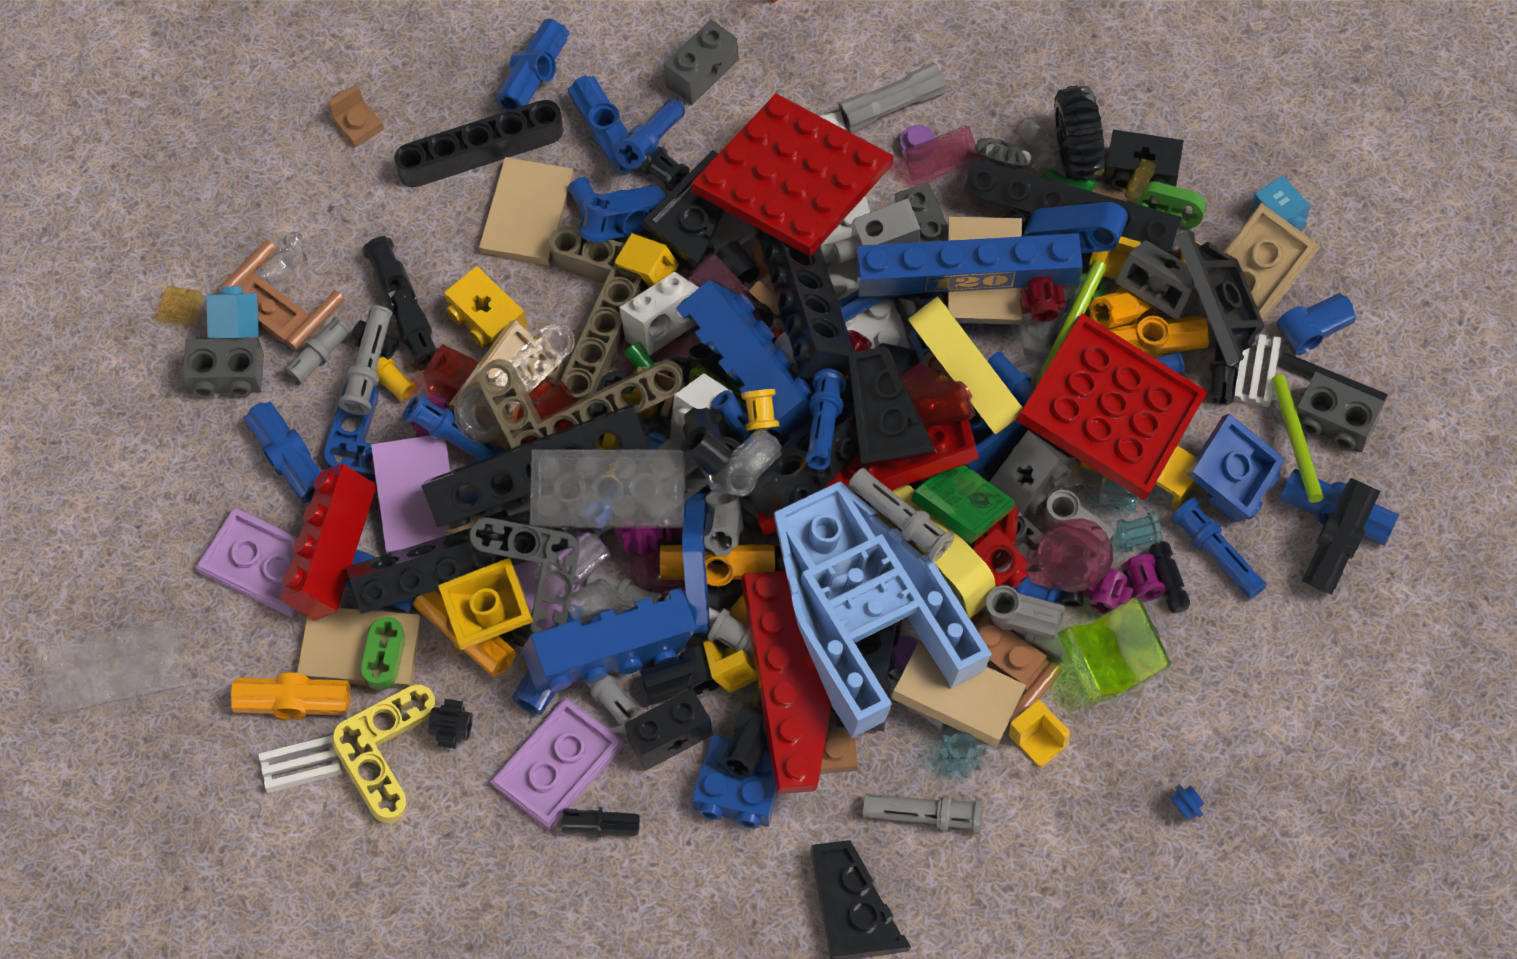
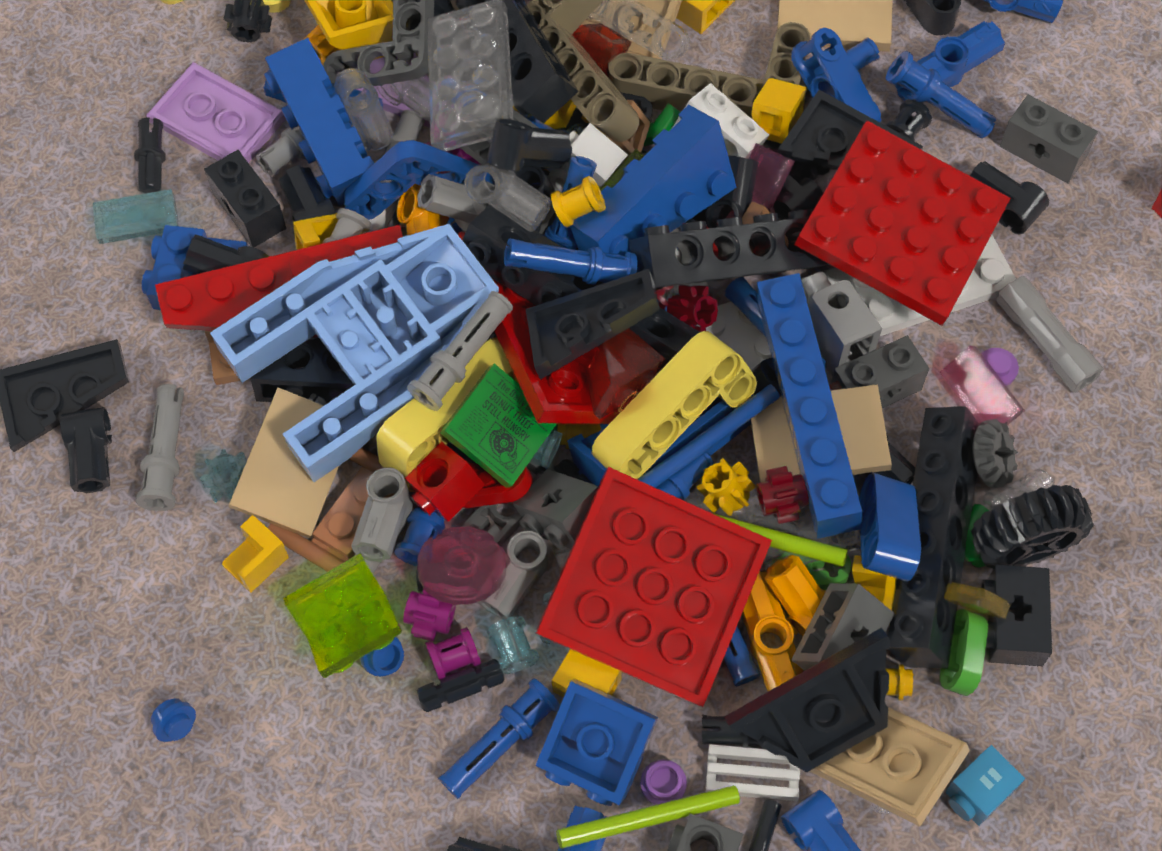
camera: 80 degrees right, 0 degrees up
(669, 835) = (134, 216): none -> clear light blue plate
(744, 107) = (1026, 199): none -> black piece
(908, 876) = (86, 442): none -> black piece
(985, 346) = (710, 437): none -> blue bar
(1032, 352) = (726, 487): none -> yellow gear
(1266, 429) = (663, 782): none -> medium lavender plate

